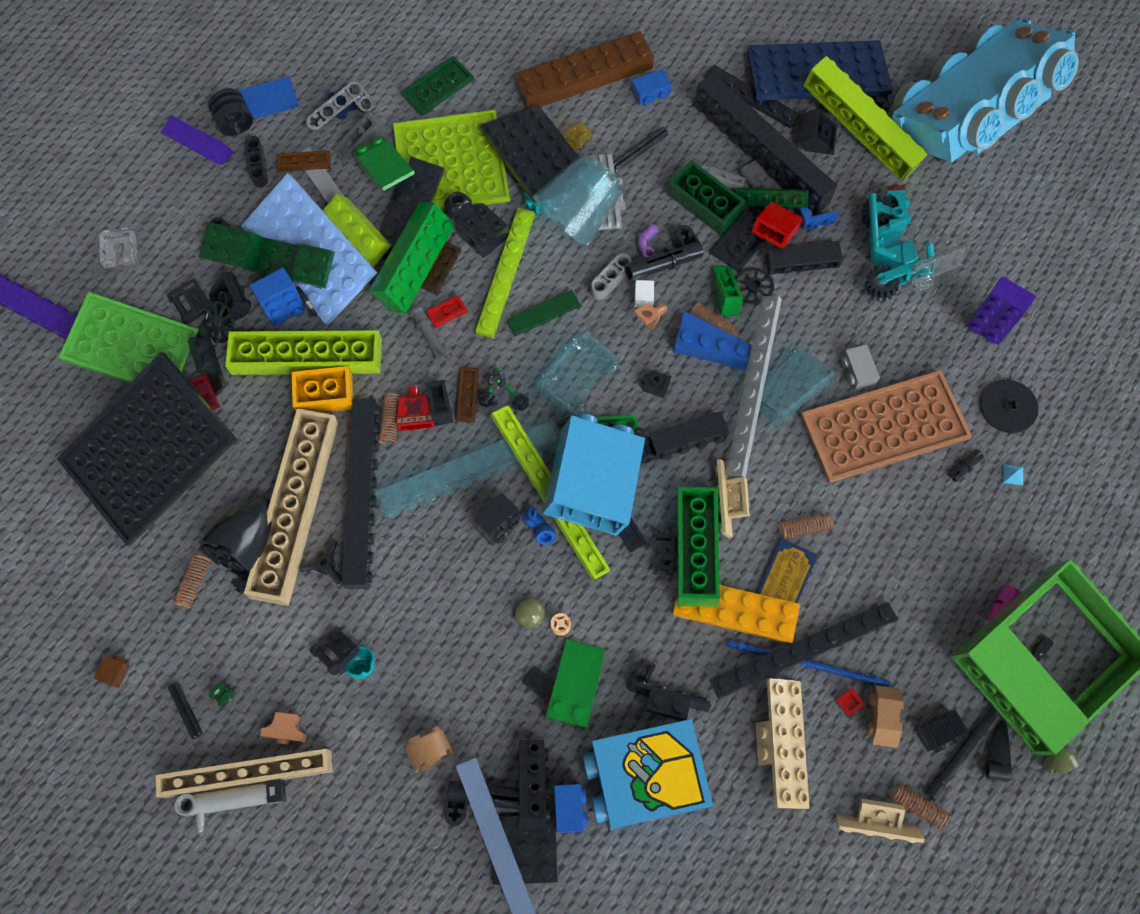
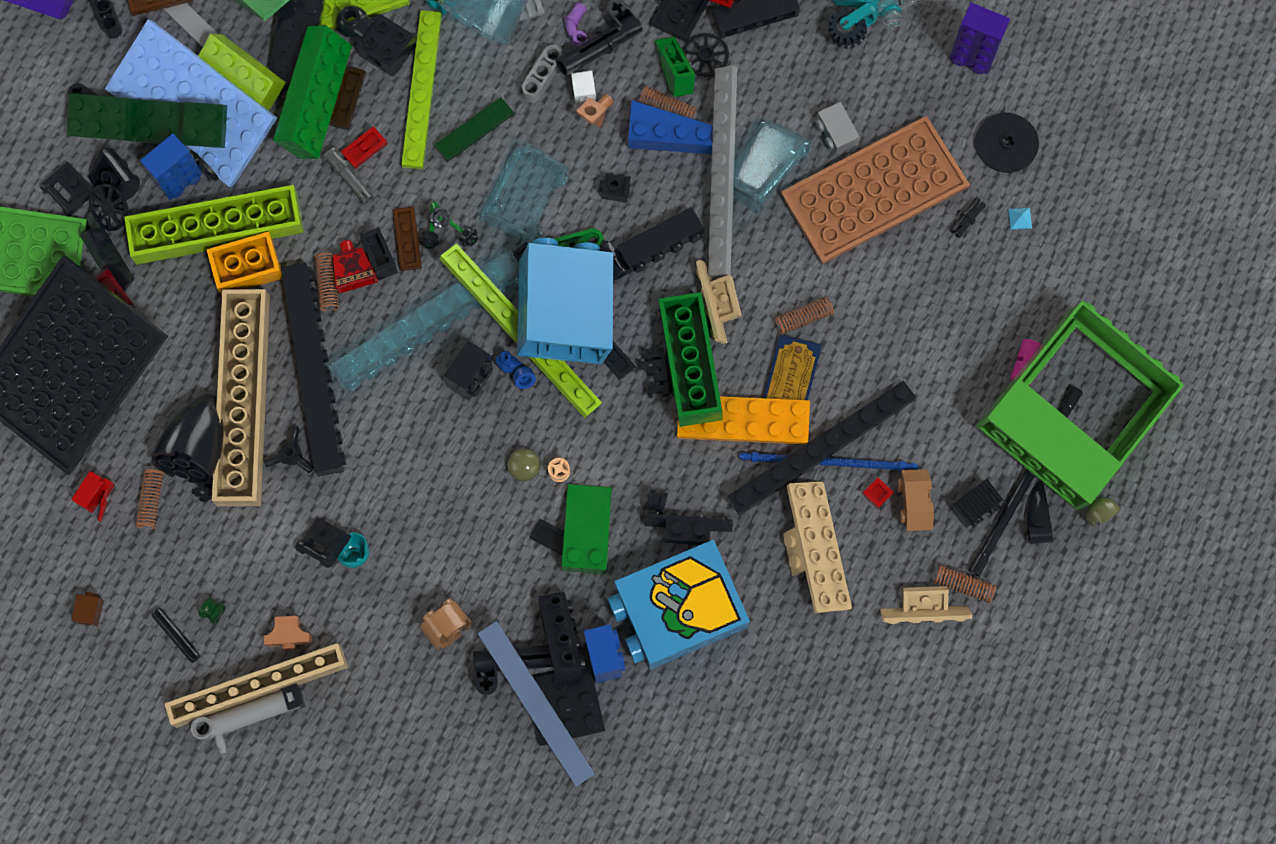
camera: 10 degrees left, 5 degrees up
(143, 565) = (92, 492): none -> red piece

